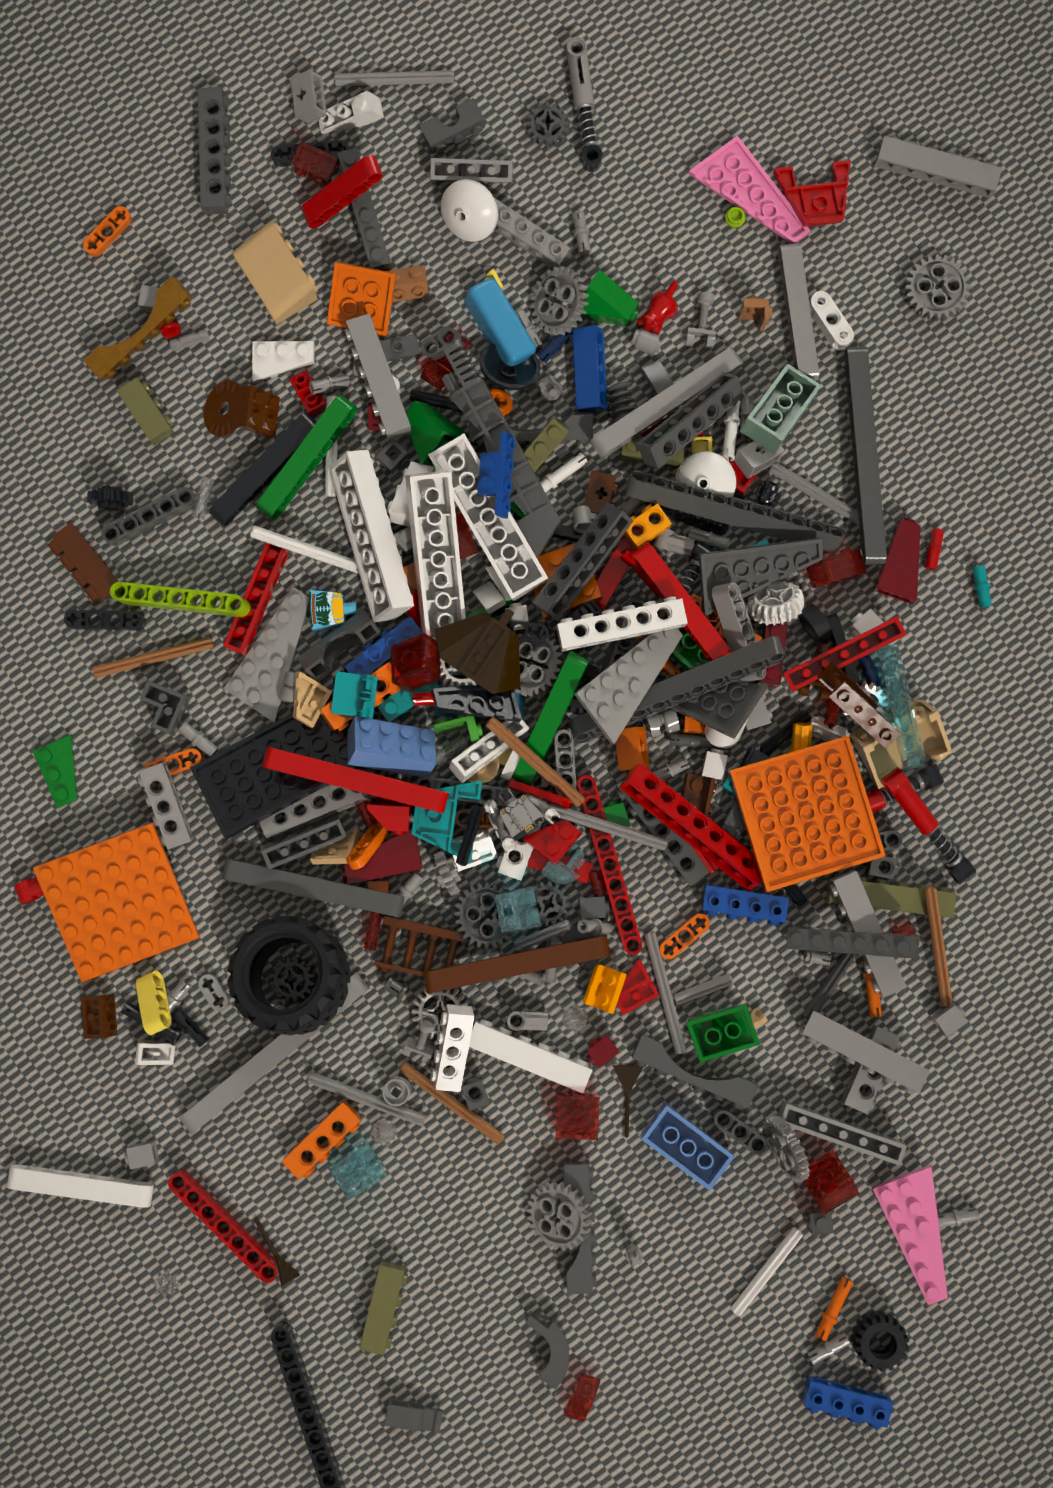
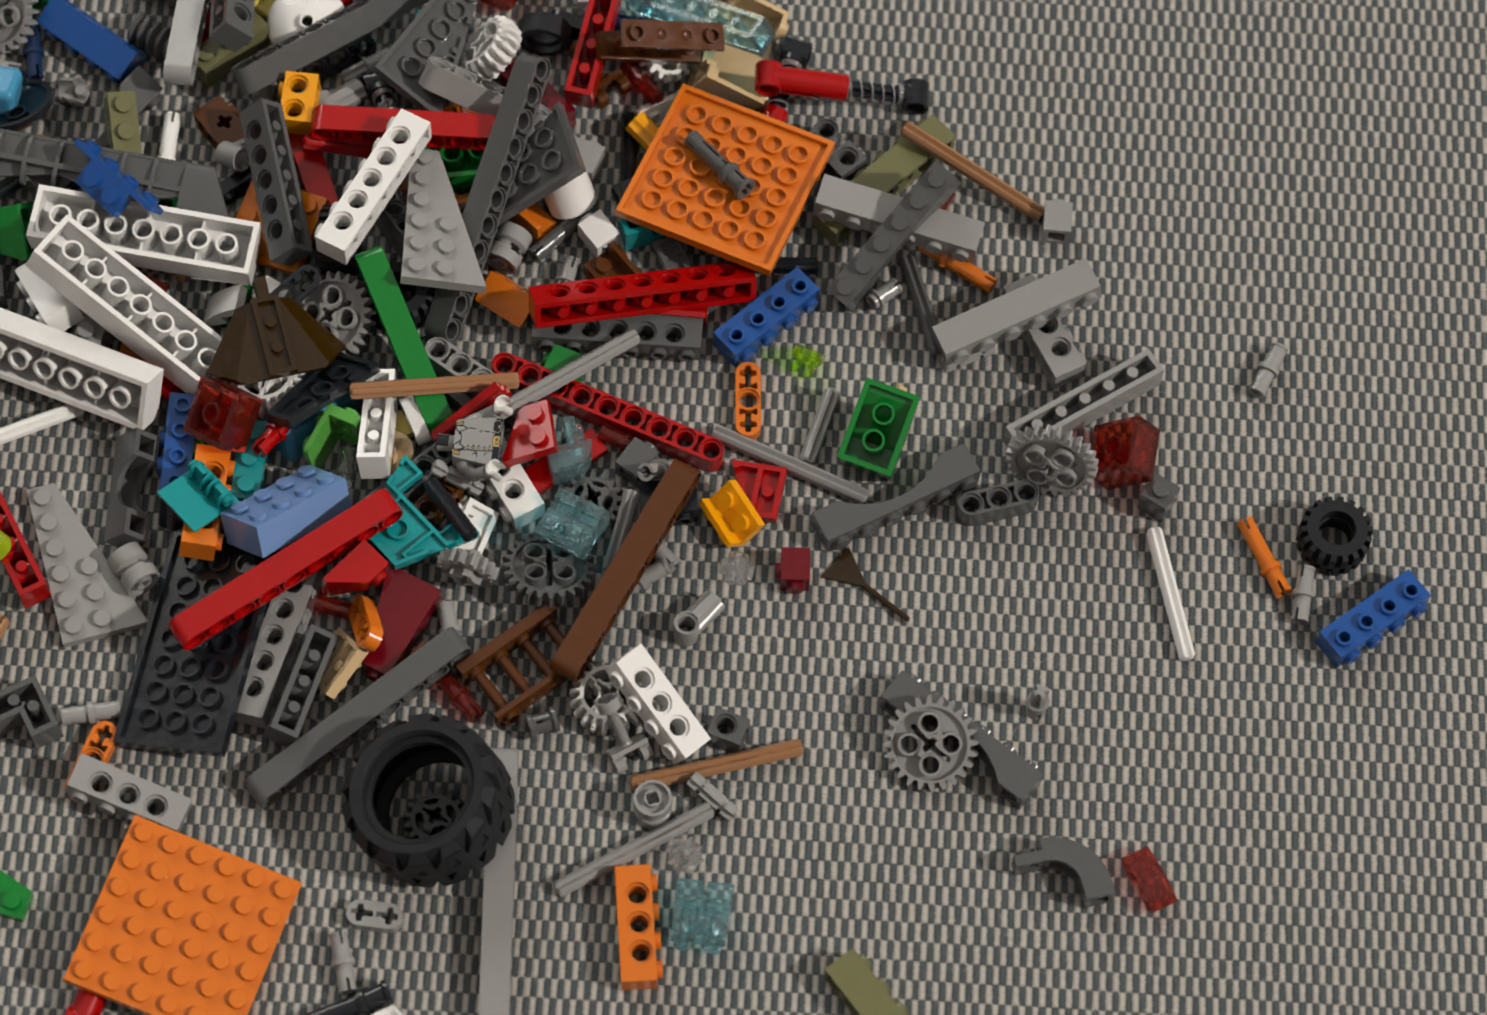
camera: 50 degrees left, 20 degrees down
(153, 1002) = (327, 979): light yellow beam -> none
(190, 1027) = (390, 970): black pin -> none
(308, 699) = (158, 557): tan wing -> none
(329, 609) = (84, 472): torso -> none
(430, 1117) = (712, 796): none -> light grey axle
(529, 1056) = (740, 642): white brick -> none
(577, 1116) = (841, 643): clear red brick -> none
(687, 1146) = (967, 561): medium blue brick -> none
(740, 948) = (807, 356): none -> clear neon green tile
(809, 814) = (727, 172): none -> dark grey pin
(913, 1217) = (1234, 409): bright pink wing -> none

